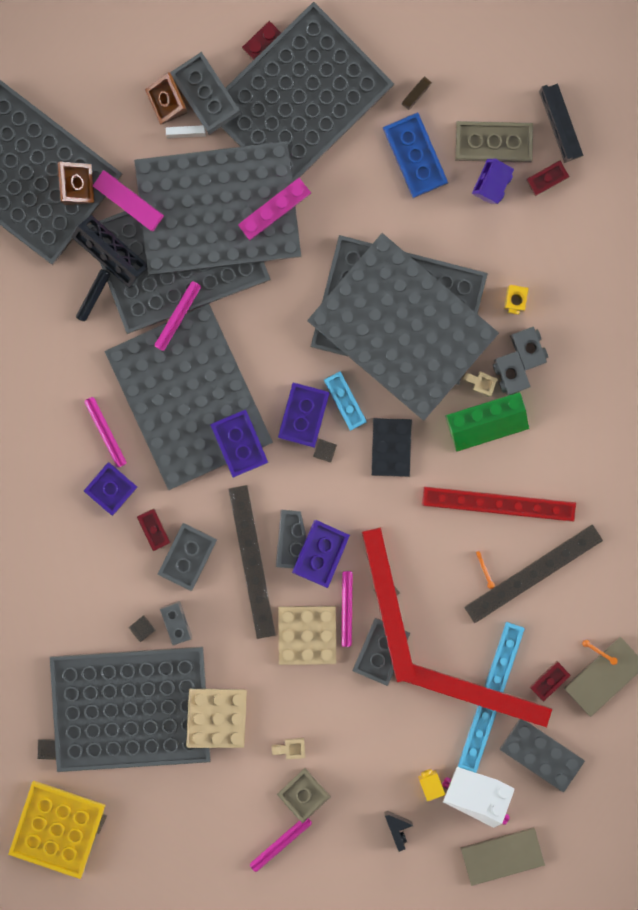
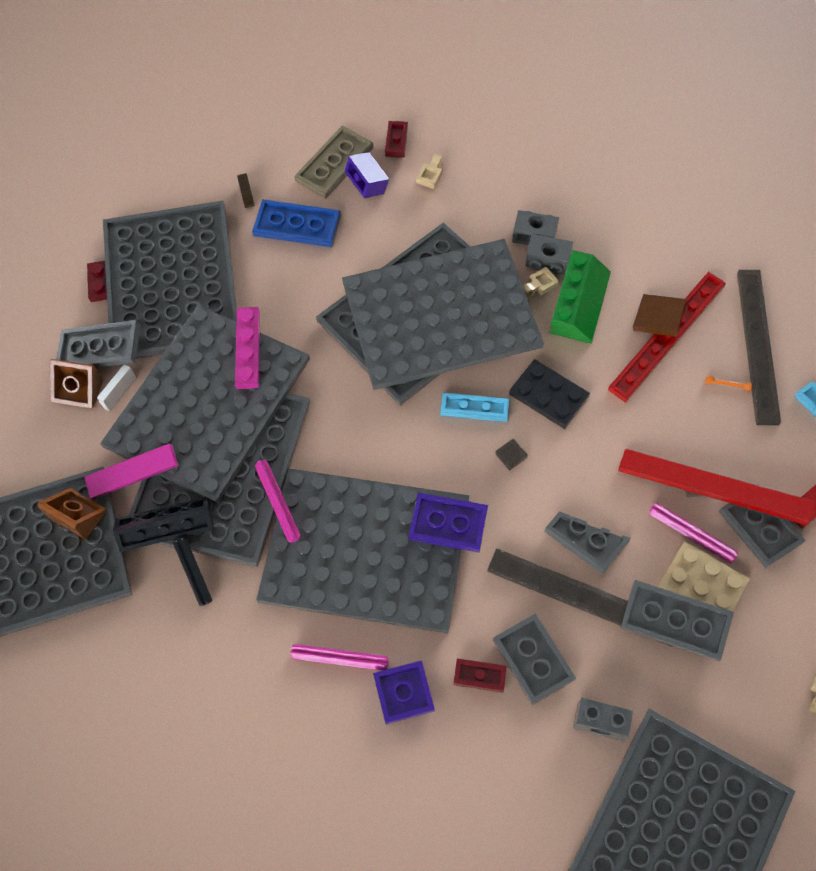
camera: 55 degrees left, 25 degrees down
(142, 628) = (584, 766): clear smoke tile -> none
(216, 718) = (744, 748): tan plate -> none
(271, 632) = (677, 620): none -> dark grey plate
(303, 414) = (462, 450): dark purple plate -> none
(321, 553) = (618, 518): dark purple plate -> none
(509, 489) = (659, 315): none -> reddish brown tile
(519, 291) = (482, 214): yellow brick -> none
(529, 230) = (430, 174): none -> tan plate
(560, 122) = (357, 108): black fence -> none

